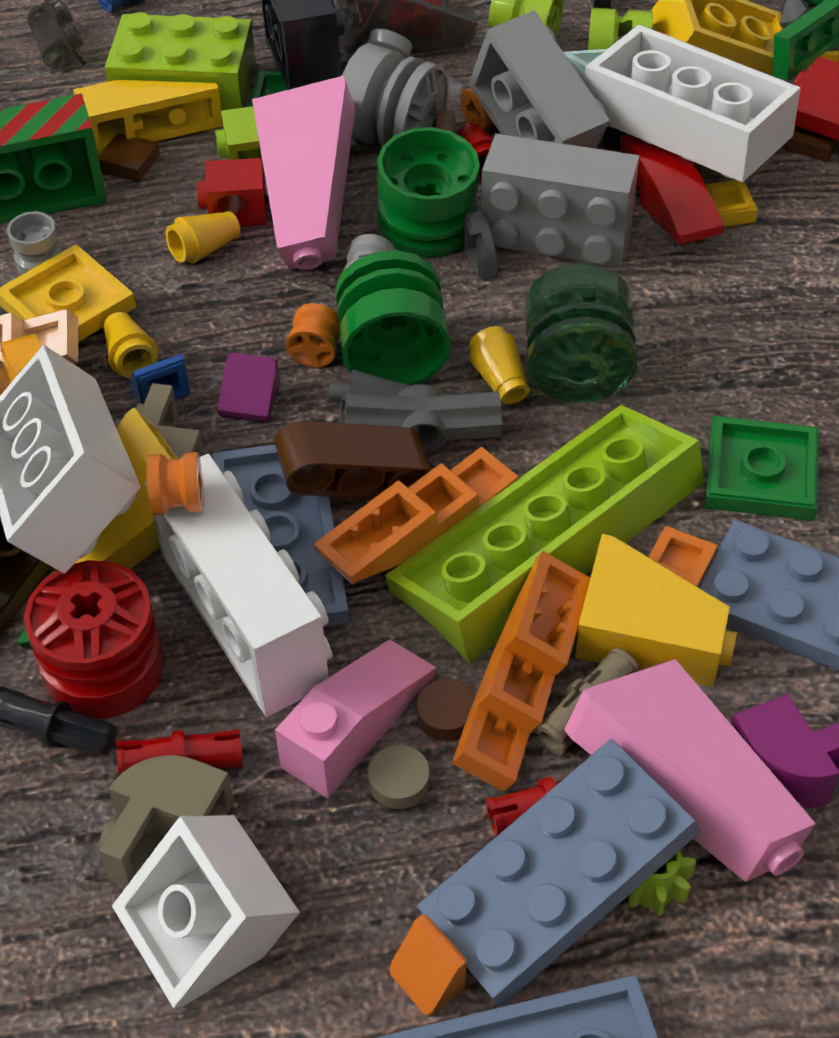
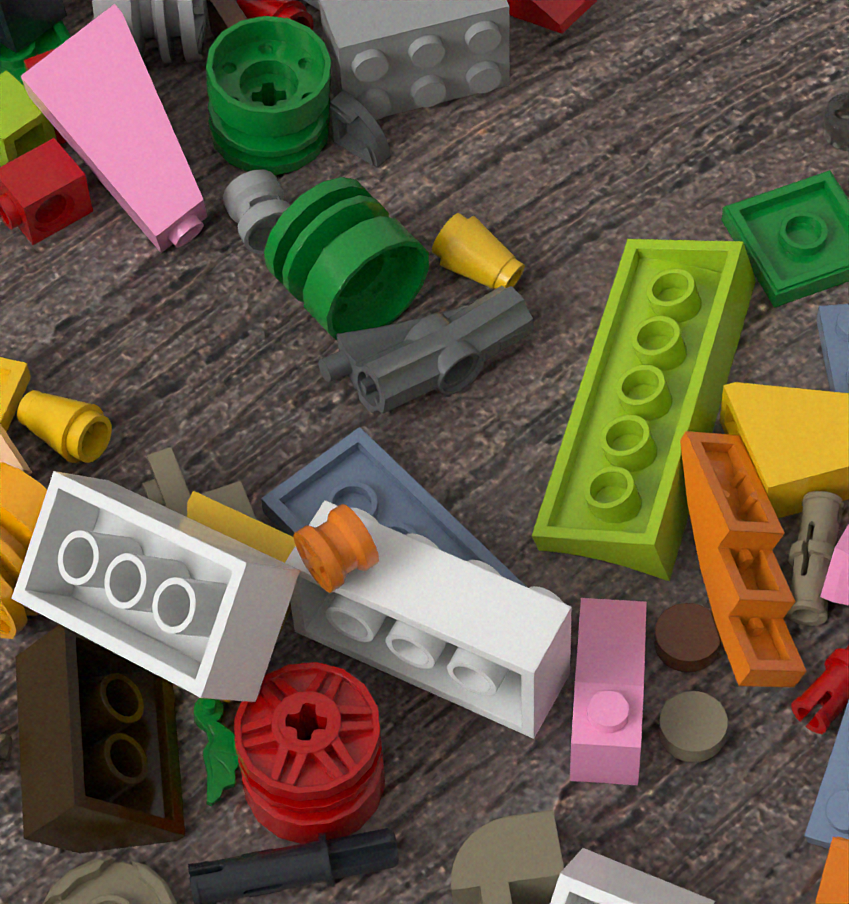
camera: 30 degrees left, 5 degrees up
(166, 372) = (127, 459): blue slope -> none
(200, 235) = (39, 263): yellow cone -> none
(214, 749) = (499, 799): red pin -> none
(249, 387) = (233, 407): magenta slope -> none
(313, 335) = (262, 315): orange wheel -> none
(348, 458) = (421, 432): reddish brown beam -> none
(411, 517) = (520, 458): orange slope -> none
(580, 333) = (548, 182): clear green wheel -> none
(684, 554) = (800, 366): orange plate -> none

